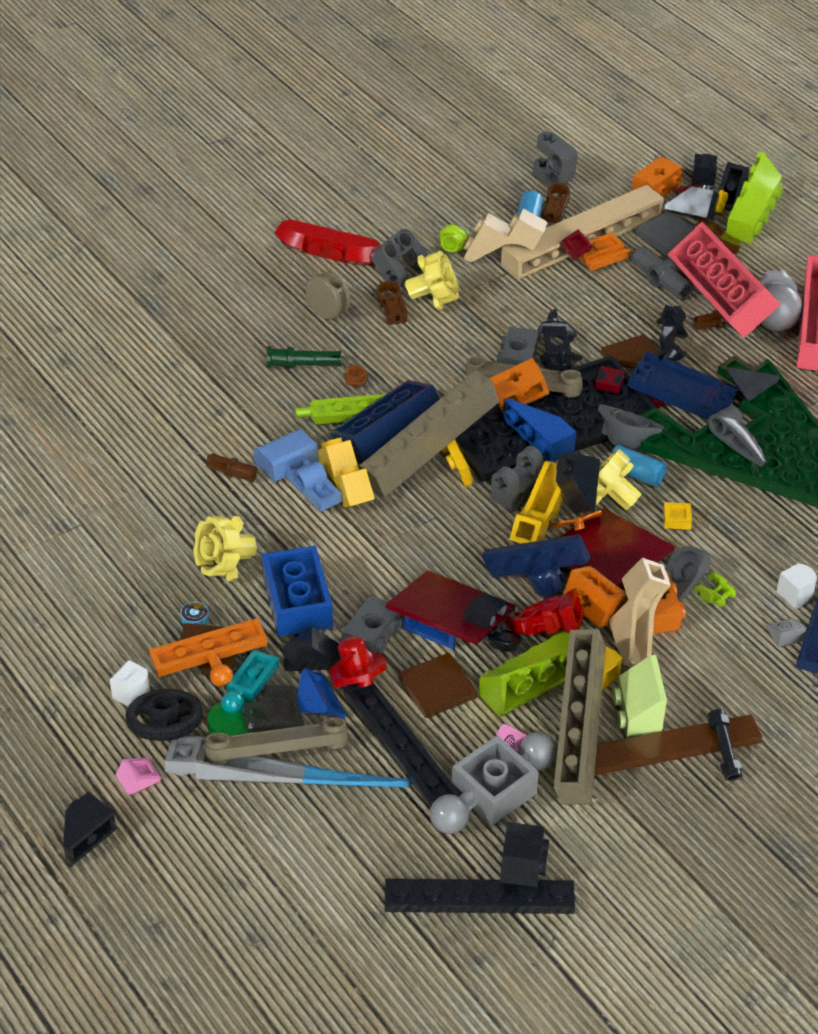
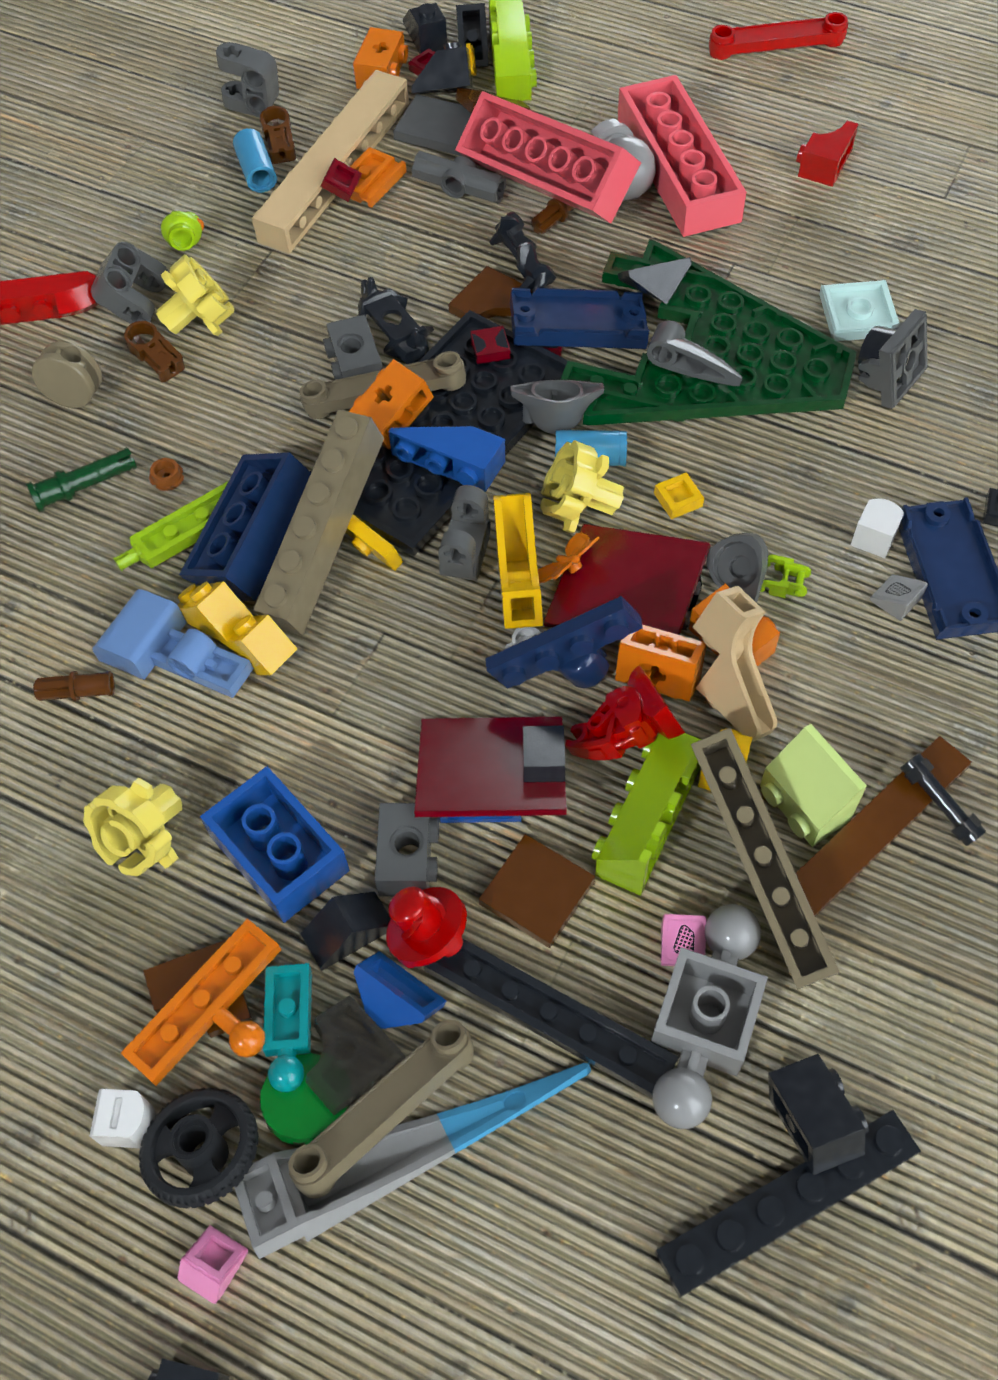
camera: 25 degrees left, 15 degrees up
(195, 613) = (148, 946): tile -> none
(495, 233) = (235, 204): tan arch -> none
(503, 639) = (584, 778): black hat -> none
(578, 480) = (553, 509): black slope -> none

